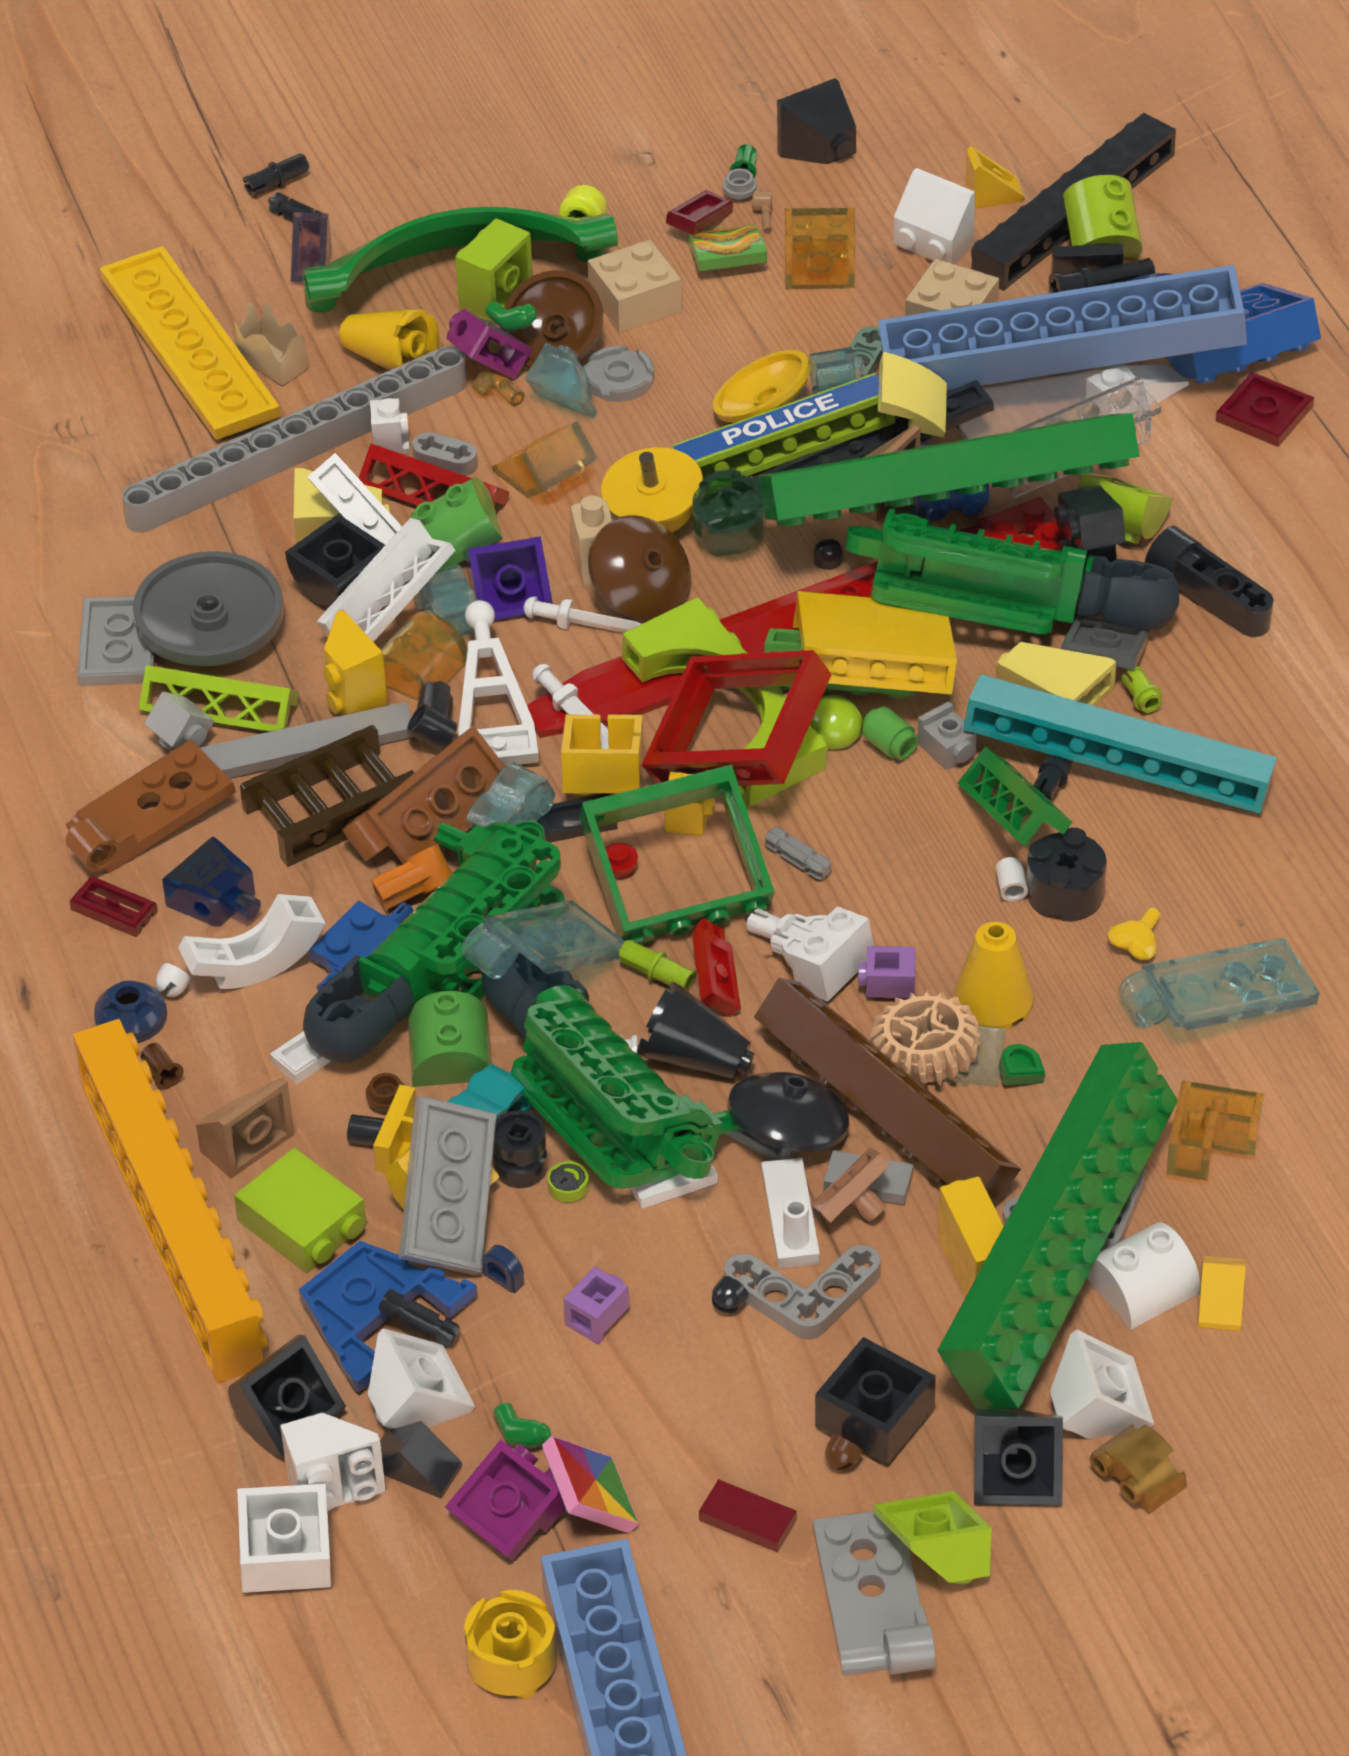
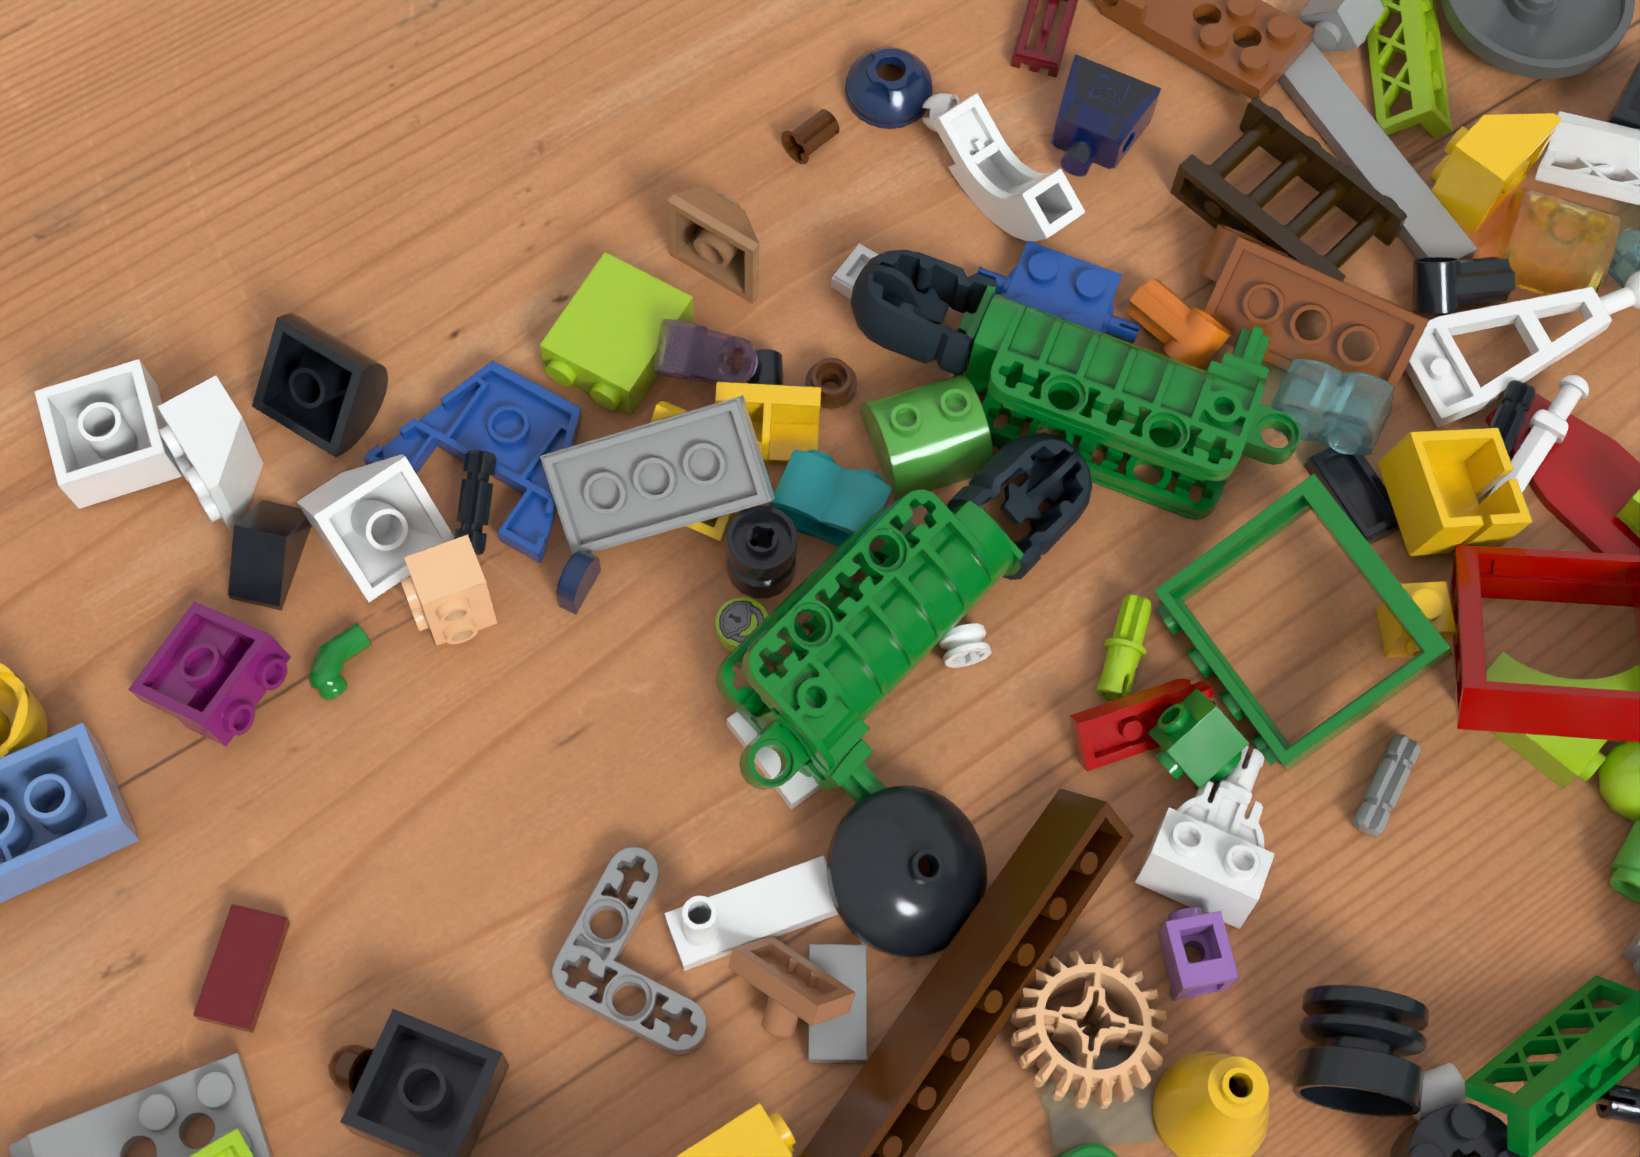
camera: 70 degrees right, 20 degrees up
(171, 1201) = (580, 186): light orange brick -> none
(347, 1149) = (698, 354): none -> clear purple piece
(497, 1330) = (448, 592): none -> light nougat brick
(549, 935) = (1054, 486): clear light blue hinge -> none
(550, 715) = (1511, 415): none -> black axle
(590, 1484) = (232, 759): tile -> none
(595, 1304) = (533, 686): medium lavender brick -> none
(622, 859) = (1298, 560): red plate -> none
(694, 1036) = (1001, 719): black cone -> none
(729, 1295) = (588, 862): black hinge -> none
(741, 933) = (1197, 740): none -> brick
(978, 895) = (1362, 1050): none -> black wheel

